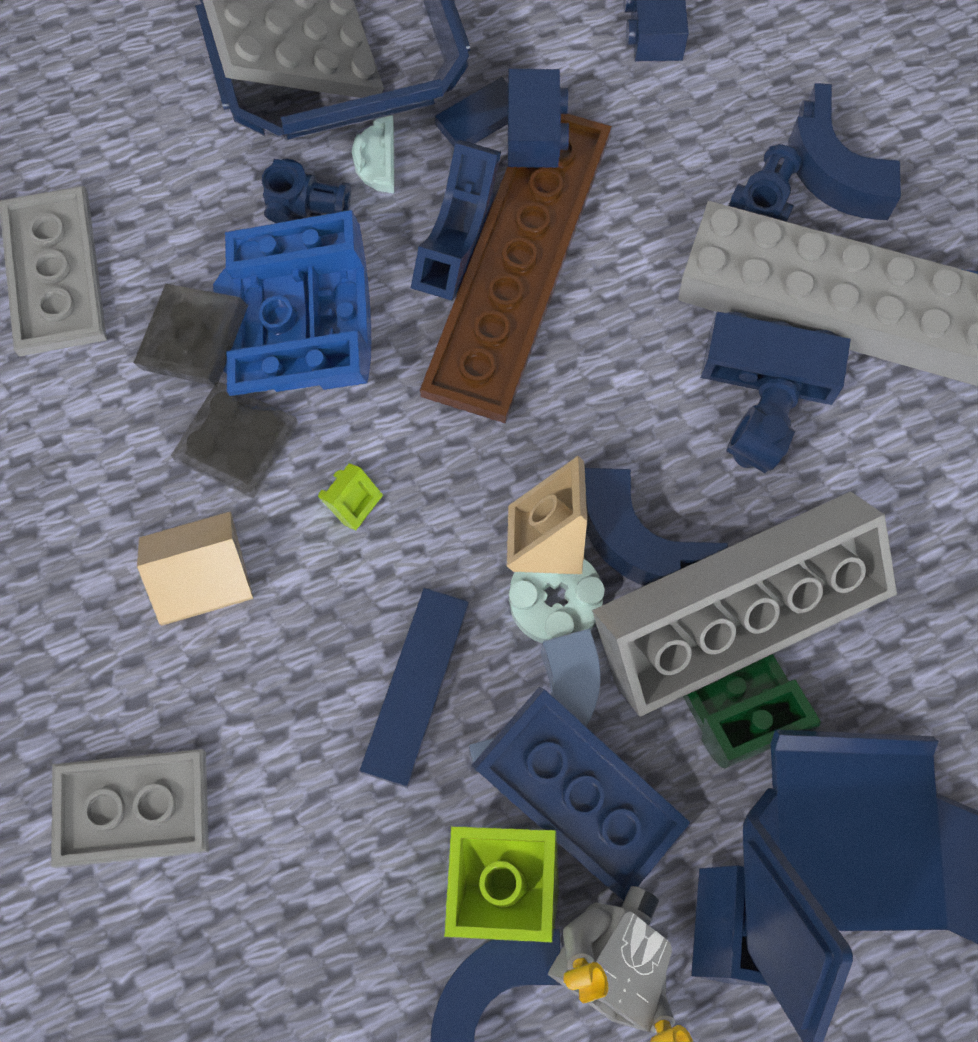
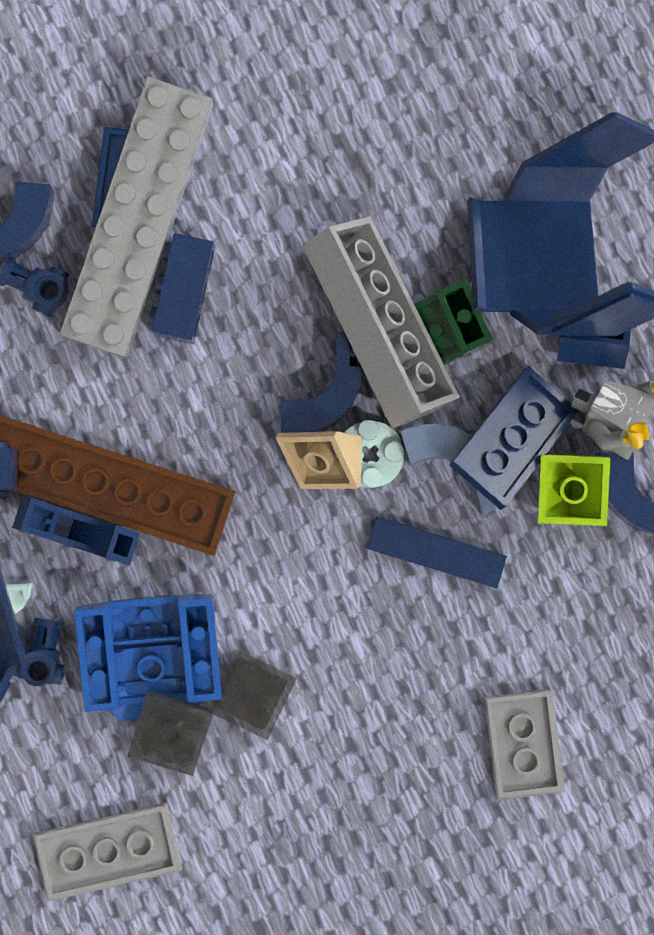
camera: 85 degrees left, 15 degrees up
(193, 568) = (352, 715): tan slope -> none
(351, 496) = (298, 603): lime tile -> none
(765, 429) = (245, 300): dark blue connector -> none

